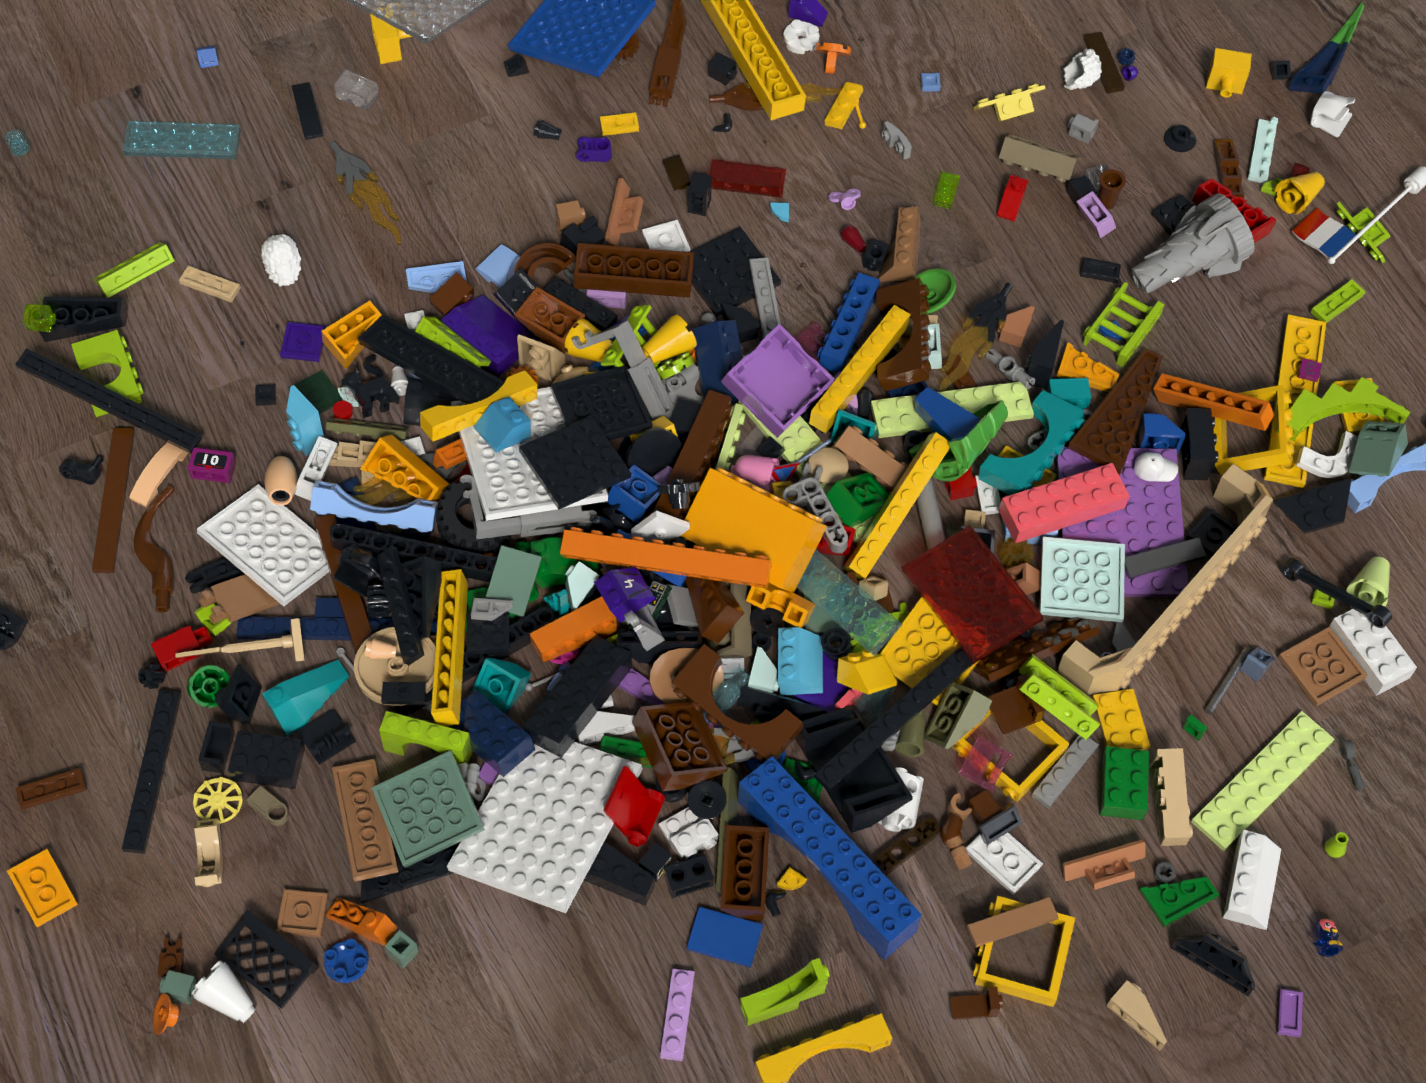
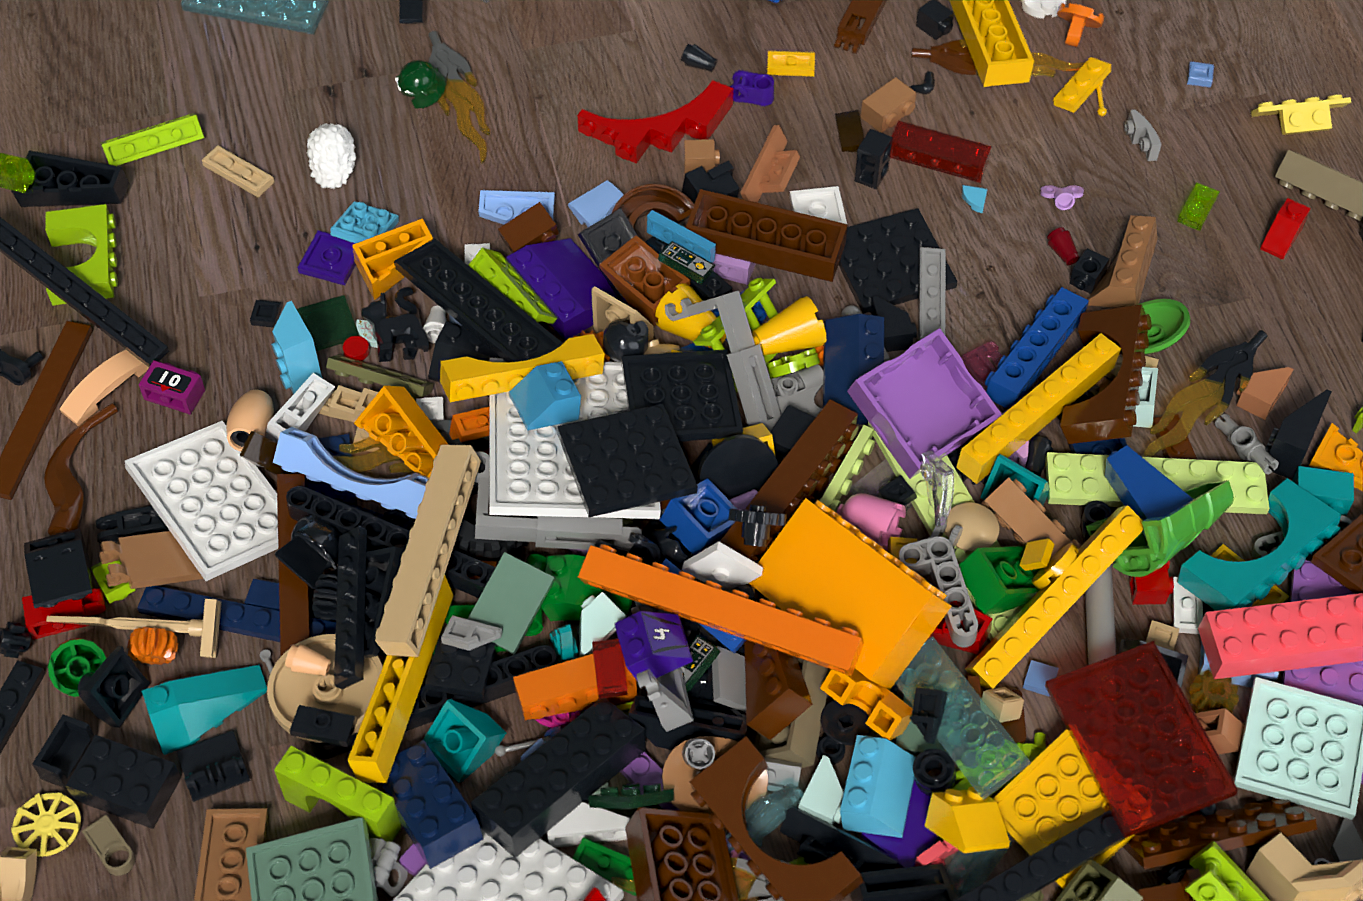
camera: 15 degrees right, 5 degrees down
(173, 617) = (58, 568): none -> black slope
(258, 660) = (152, 645): none -> orange gear
(299, 504) = (261, 452): none -> dark brown slope
(322, 310) = (363, 222): none -> medium azure tile
(336, 187) = (421, 81): none -> dark green helmet
(448, 554) = (428, 551): none -> tan brick
(535, 196) = (665, 131): none -> red arch
(549, 370) = (625, 339): none -> black cap
(571, 283) = (671, 231): none -> dark azure tile
(579, 301) = (686, 262): none -> tile
(597, 614) = (609, 669): none -> clear red tile
(631, 700) = (631, 796): none -> clear green plate
(676, 661) = (702, 753): none -> flat silver wheel
(701, 146) = (888, 105): none -> medium nougat piece
(784, 472) = (910, 525): piece -> none
(801, 440) = (939, 485): none -> clear plate
(824, 603) = (928, 712): none -> black slope
(878, 477) = (1037, 554): none -> yellow tile
(893, 483) = (1057, 565): none -> yellow tile
(894, 563) = (1038, 675): none -> medium blue tile

